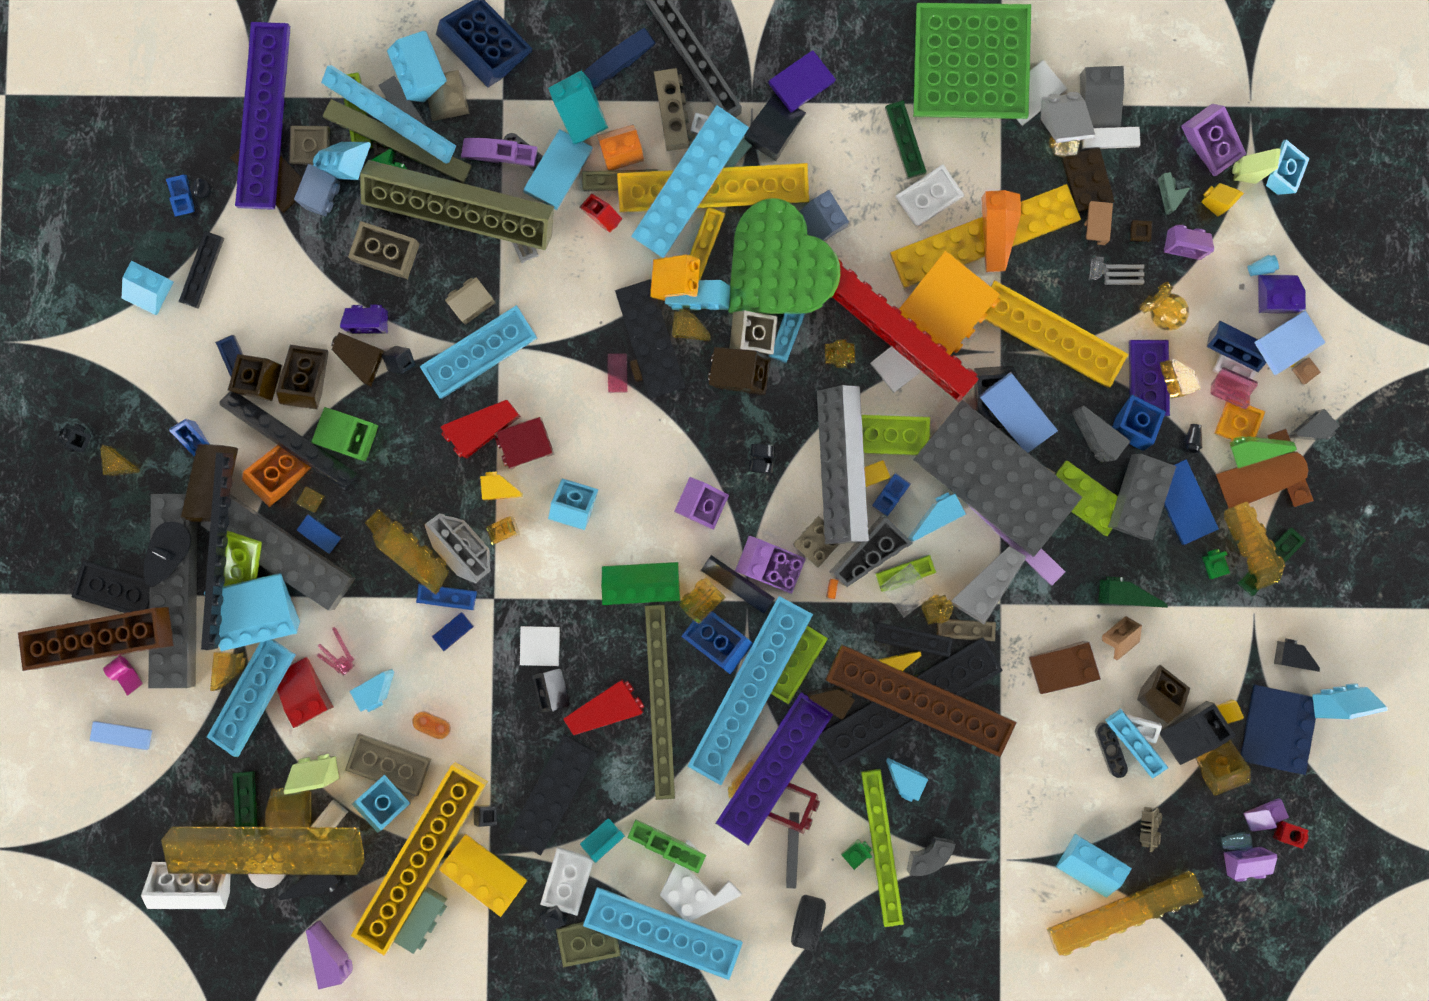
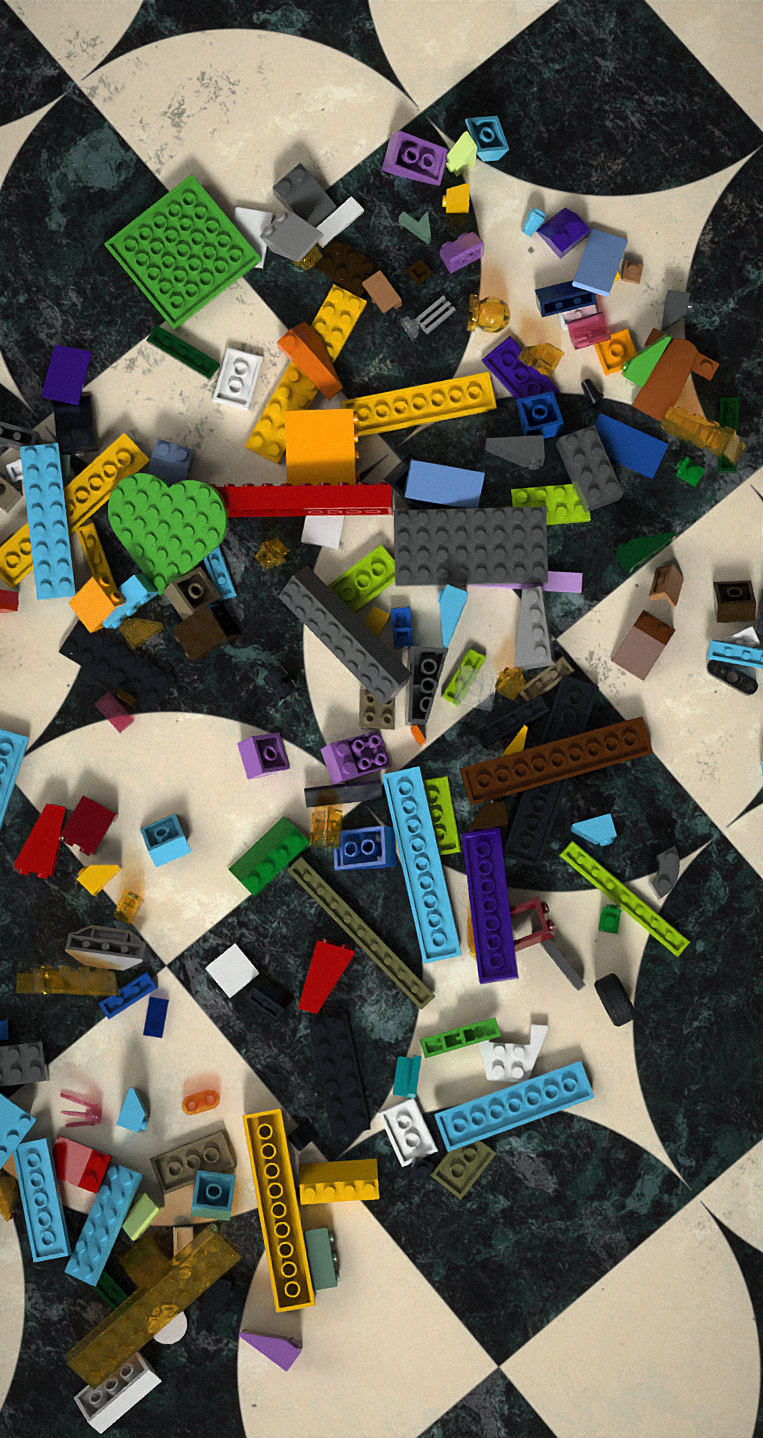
camera: 40 degrees left, 5 degrees down
(280, 754) = (103, 1223): none -> medium azure plate

